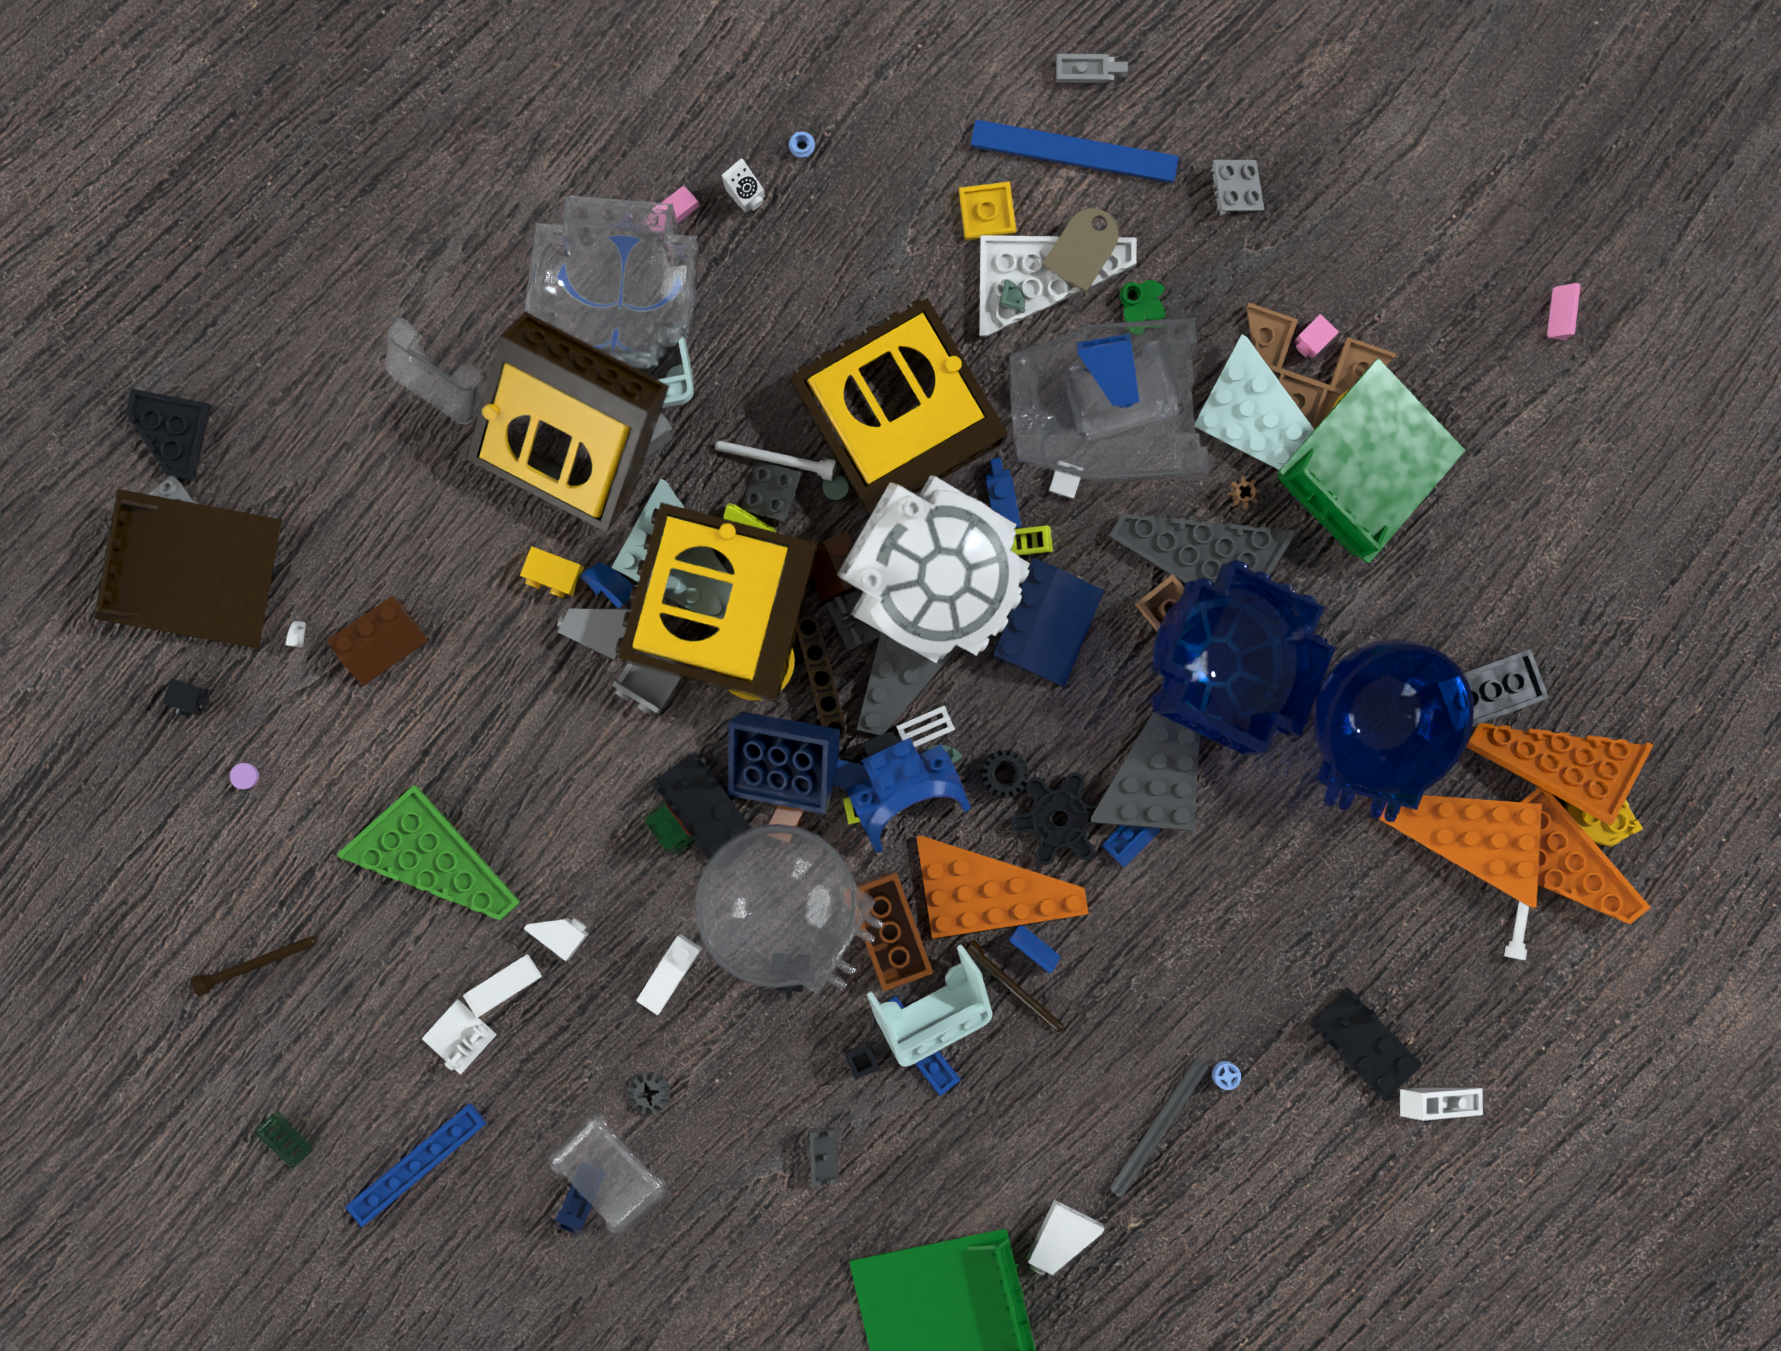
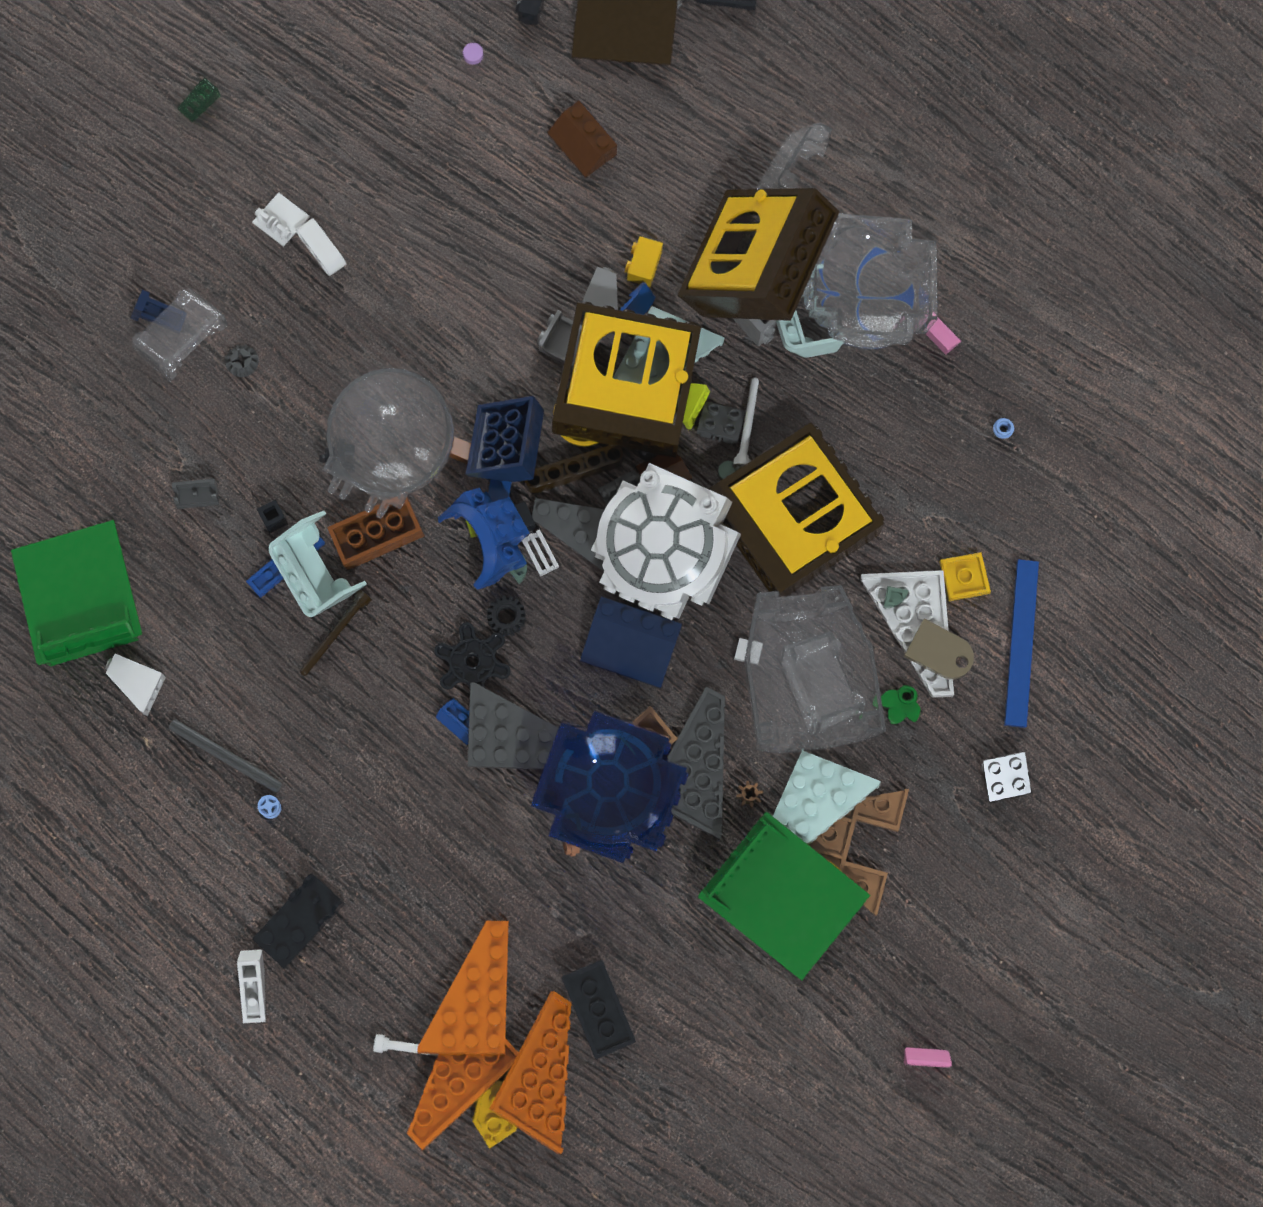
camera: 85 degrees right, 10 degrees down
(204, 983) = (314, 36): dark brown piece -> none
(296, 634) = (583, 81): white tile -> none
(416, 1165) = (182, 195): blue tile -> none
(426, 851) = (421, 186): bright green wing -> none
(559, 935) = (360, 286): white slope -> none
(668, 828) = (449, 359): dark green torso -> none
(669, 974) = (333, 367): white slope -> none
(701, 803) = (472, 383): black hinge -> none
(743, 186) = (963, 382): white slope -> none
(981, 893) = (409, 605): orange wing -> none
(1002, 492) = (730, 602): blue hinge -> none
(1034, 948) = (366, 647): blue slope -> none
(1047, 541) = (696, 635): neon yellow slope -> none
(1088, 68) = (1091, 649): light grey hinge -> none
(1112, 367) = (839, 670): blue slope -> none
(1315, 337) = (885, 846): bright pink brick -> none
(1390, 724) = (562, 910): clear blue windscreen -> none

